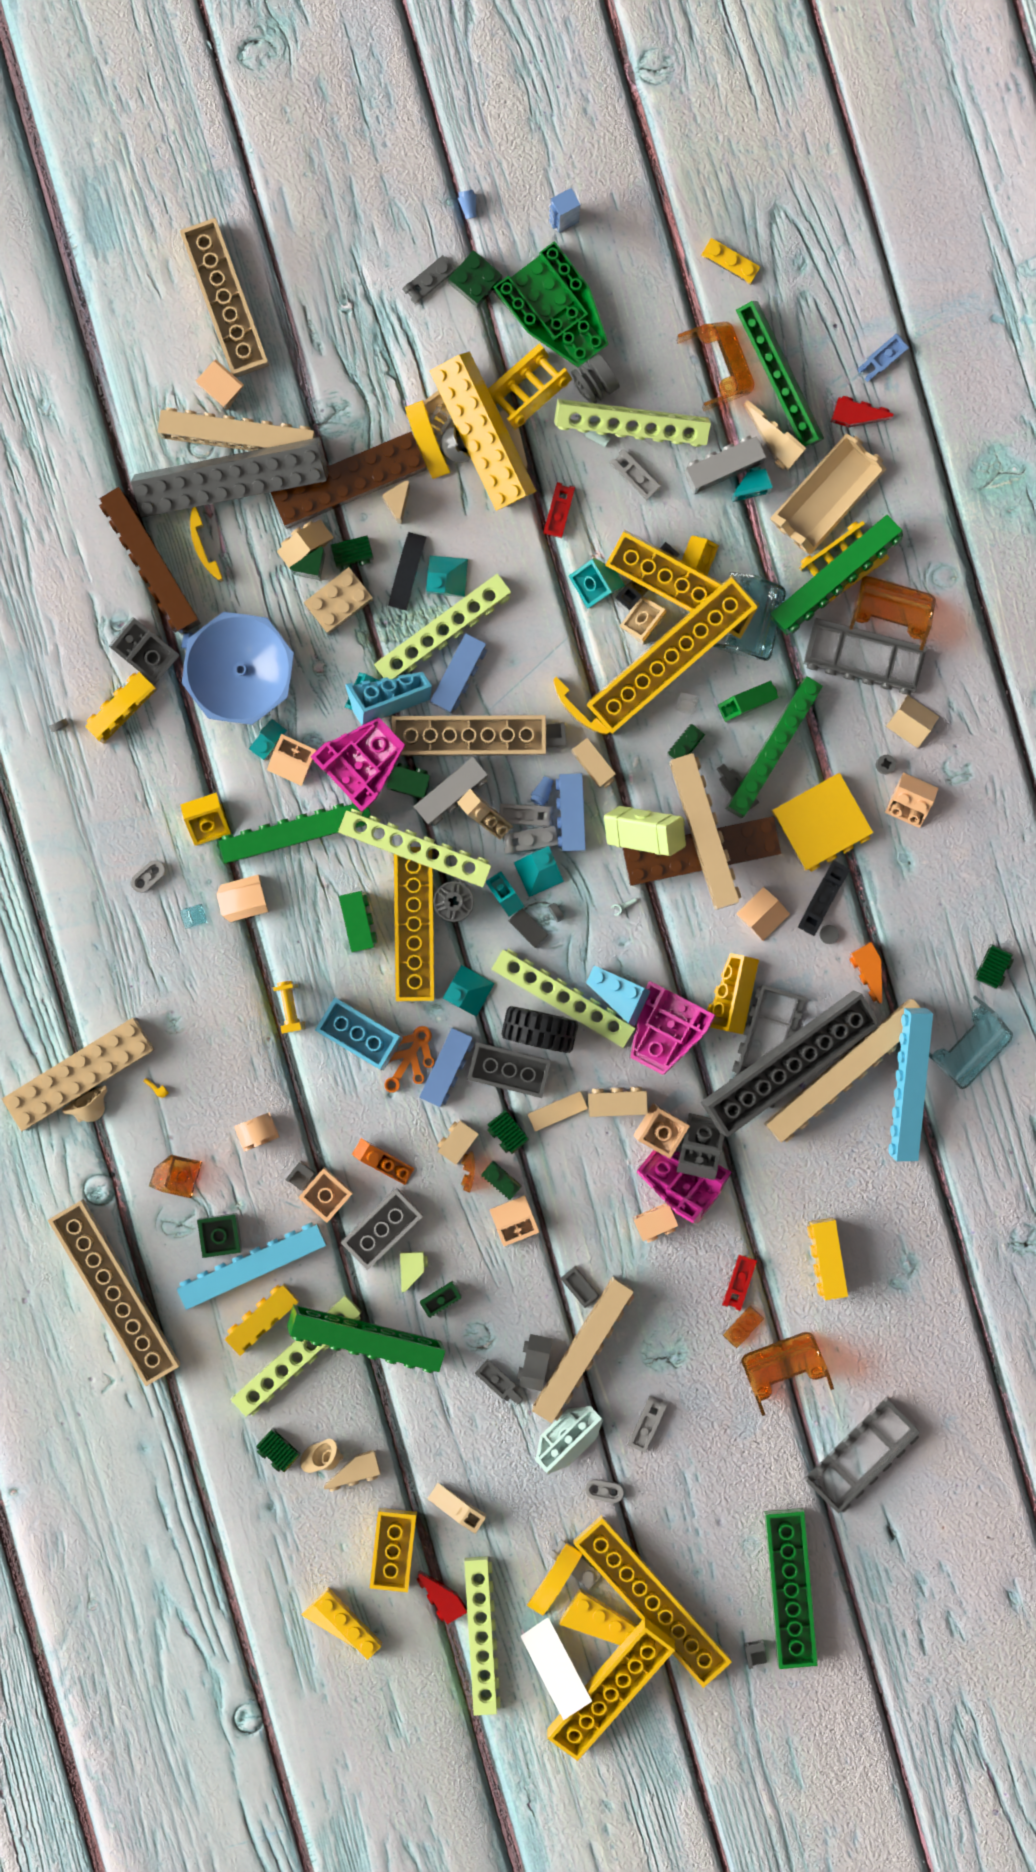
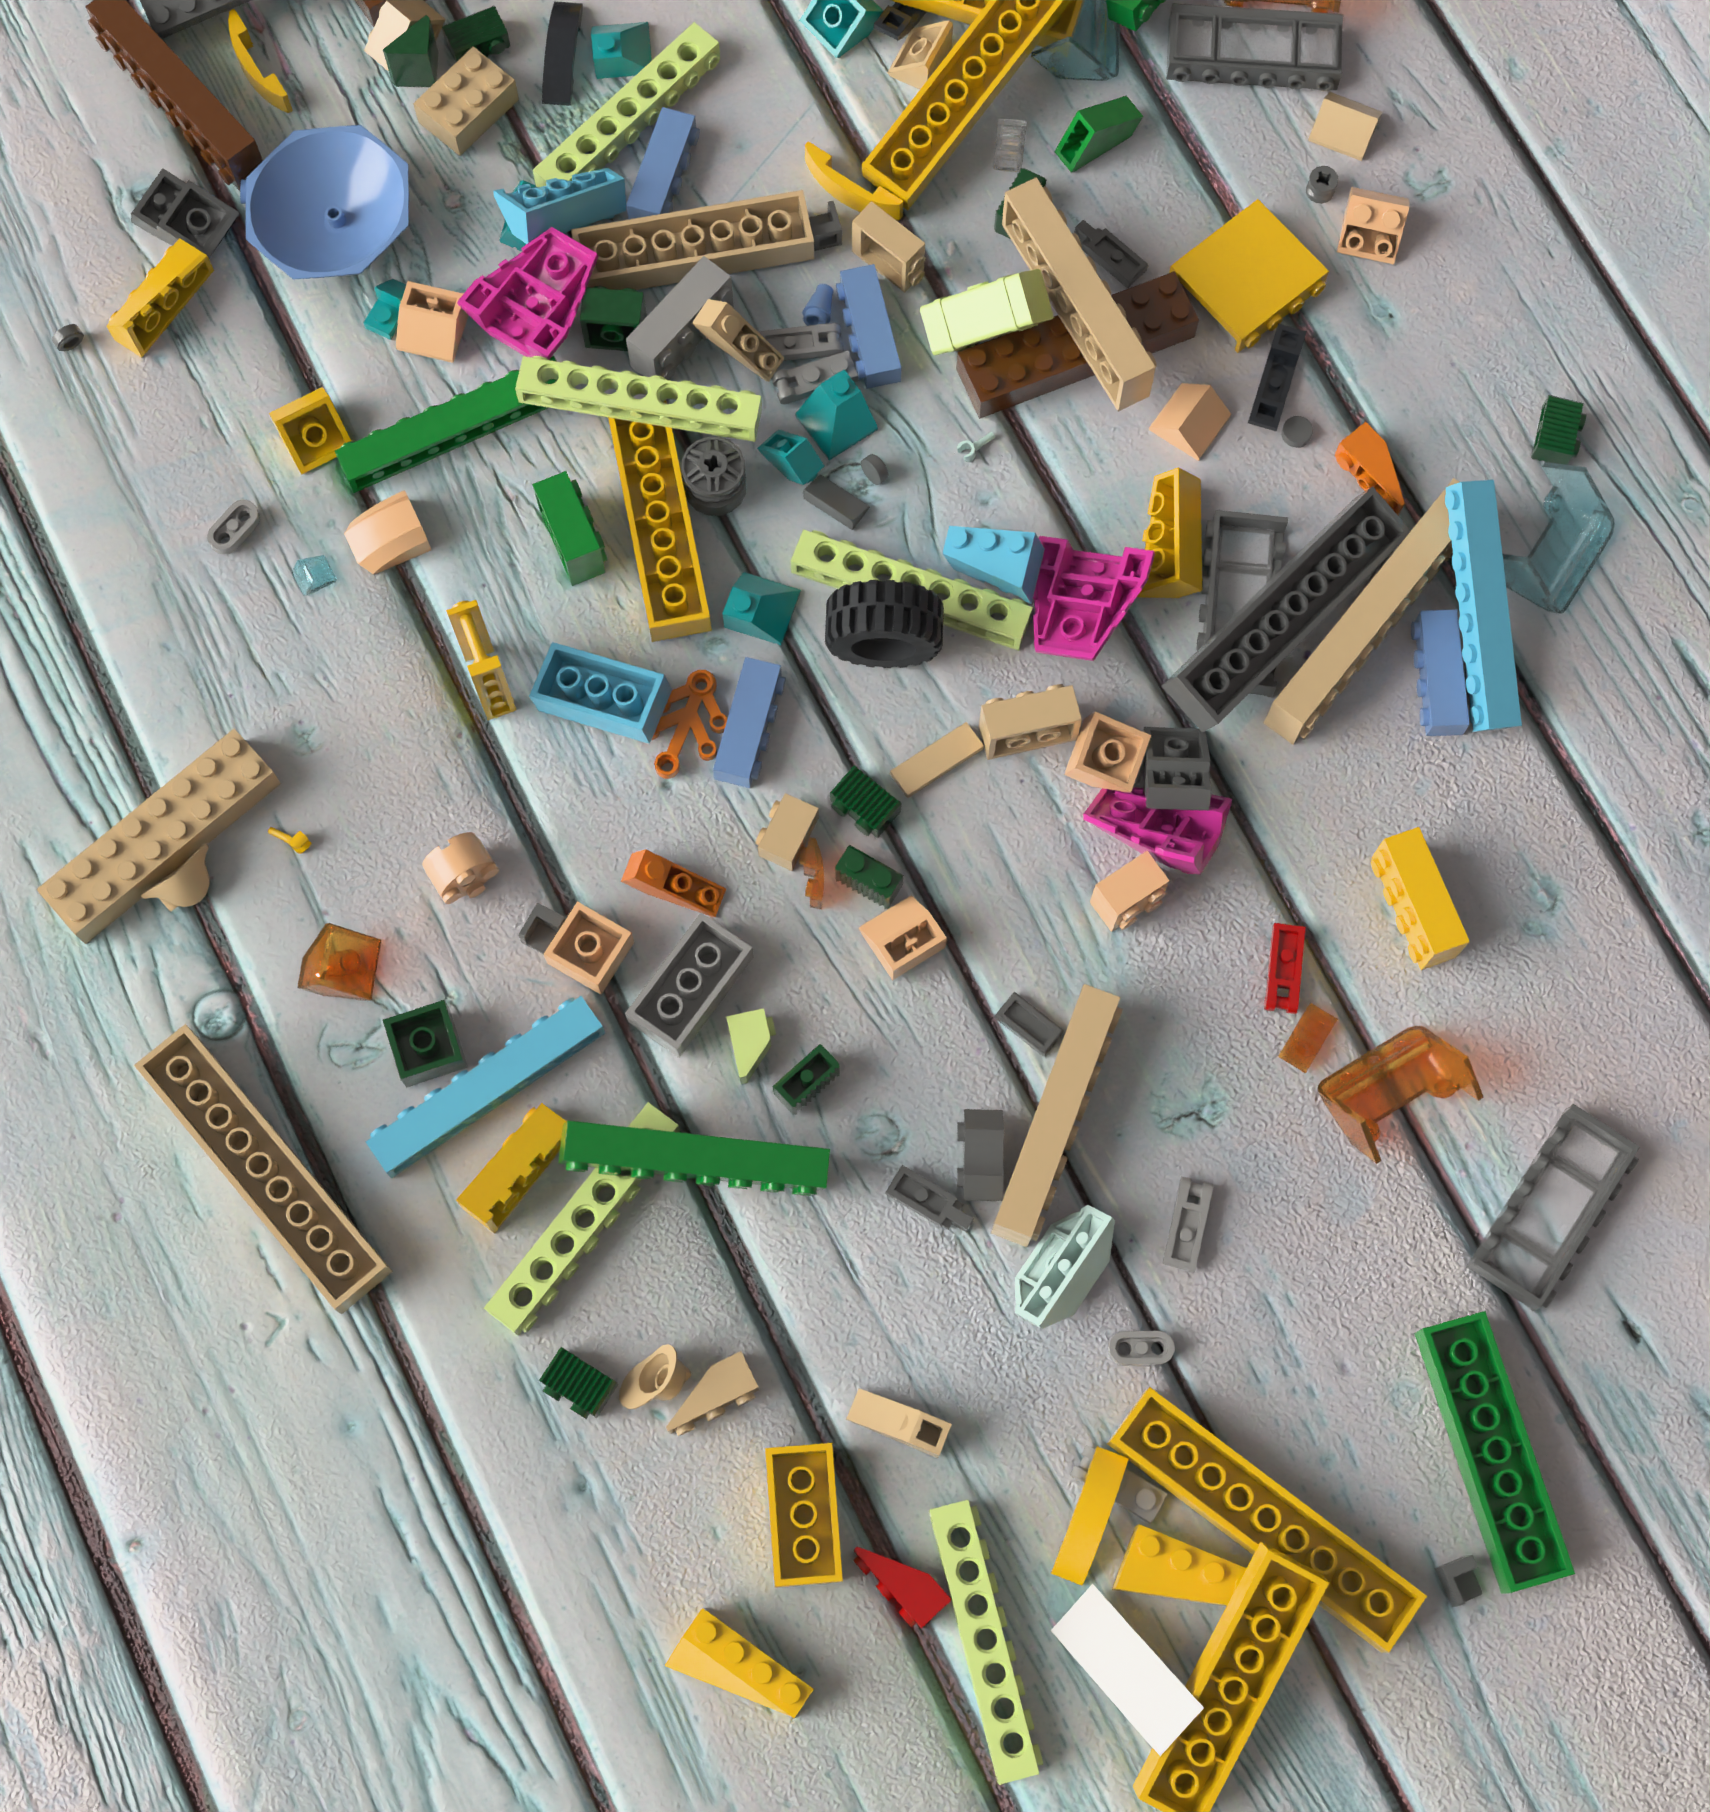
camera: 10 degrees left, 15 degrees down
(509, 1069) = (848, 705): dark grey brick -> none
(774, 747) = (1151, 183): green brick -> none
(879, 1114) = (1440, 673): none -> medium blue brick

